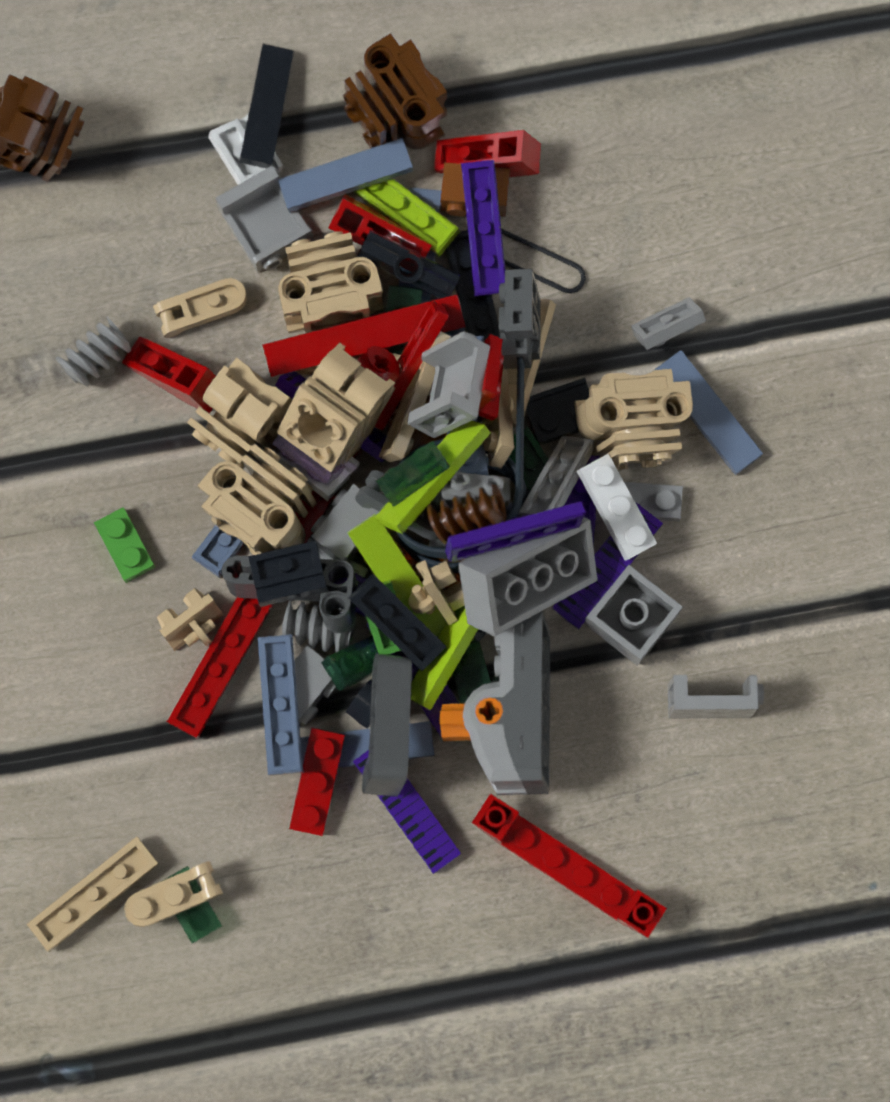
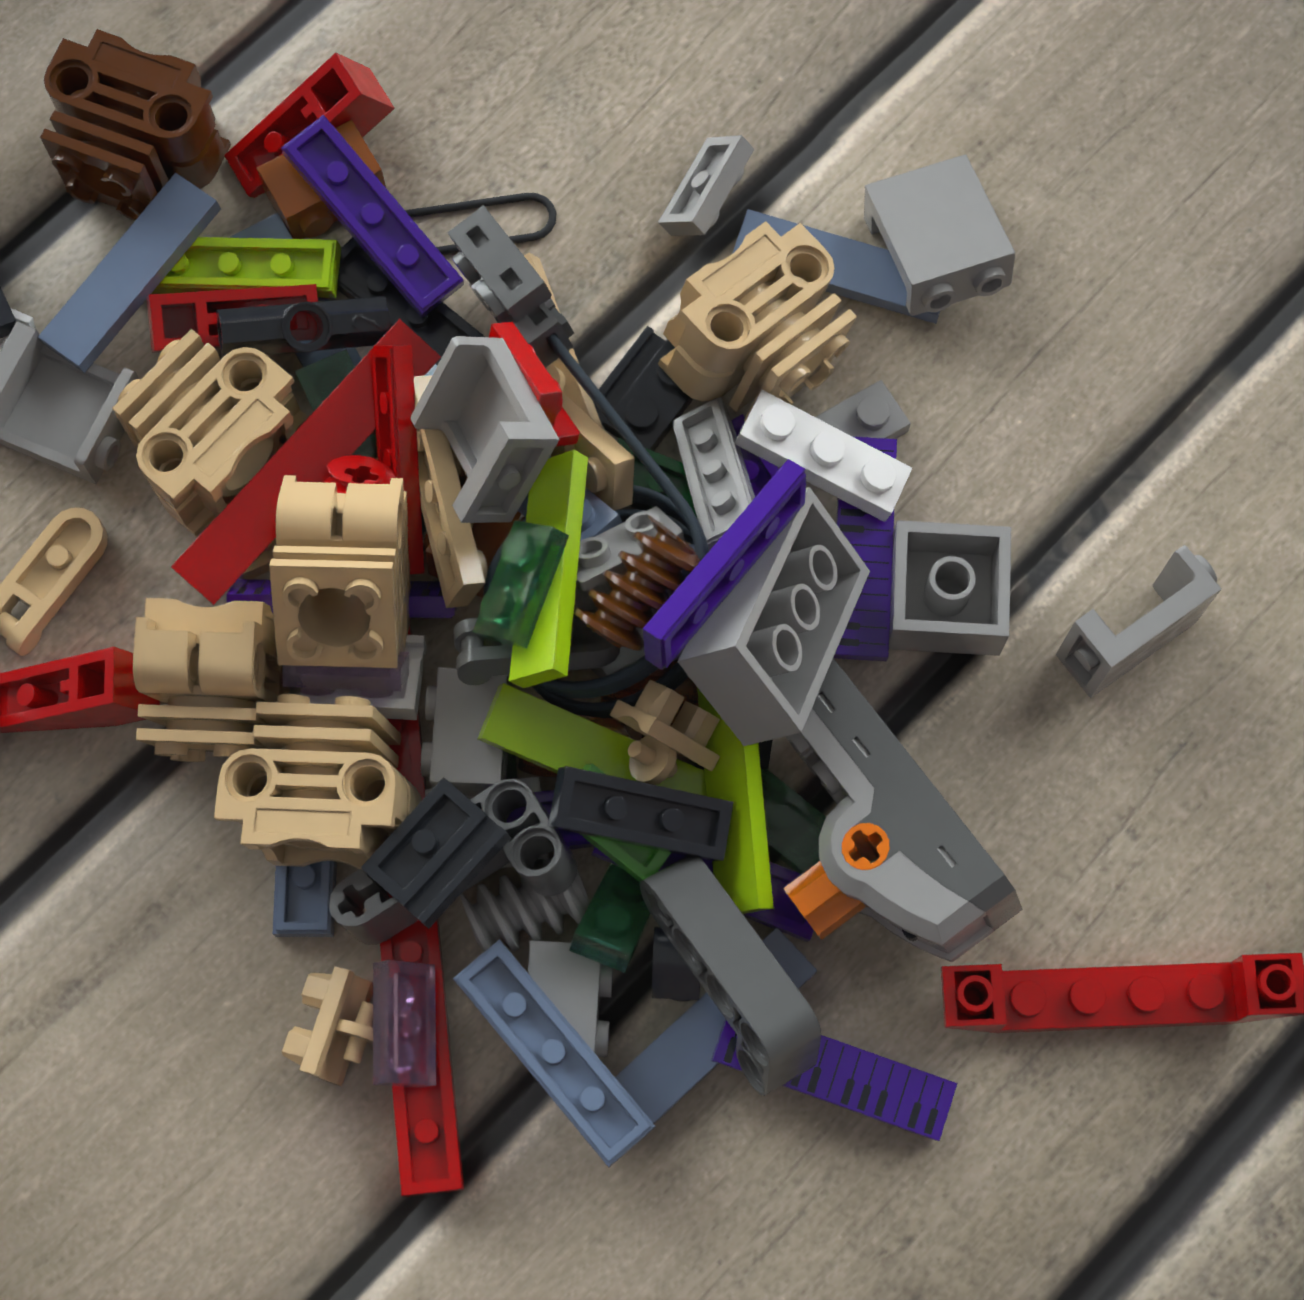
camera: 35 degrees left, 5 degrees down
(124, 545) = (162, 984): bright green plate -> none
(221, 643) = (404, 1024): none -> clear purple plate
(317, 781) = (683, 1127): red plate -> none
(766, 432) = (940, 234): none -> light grey panel

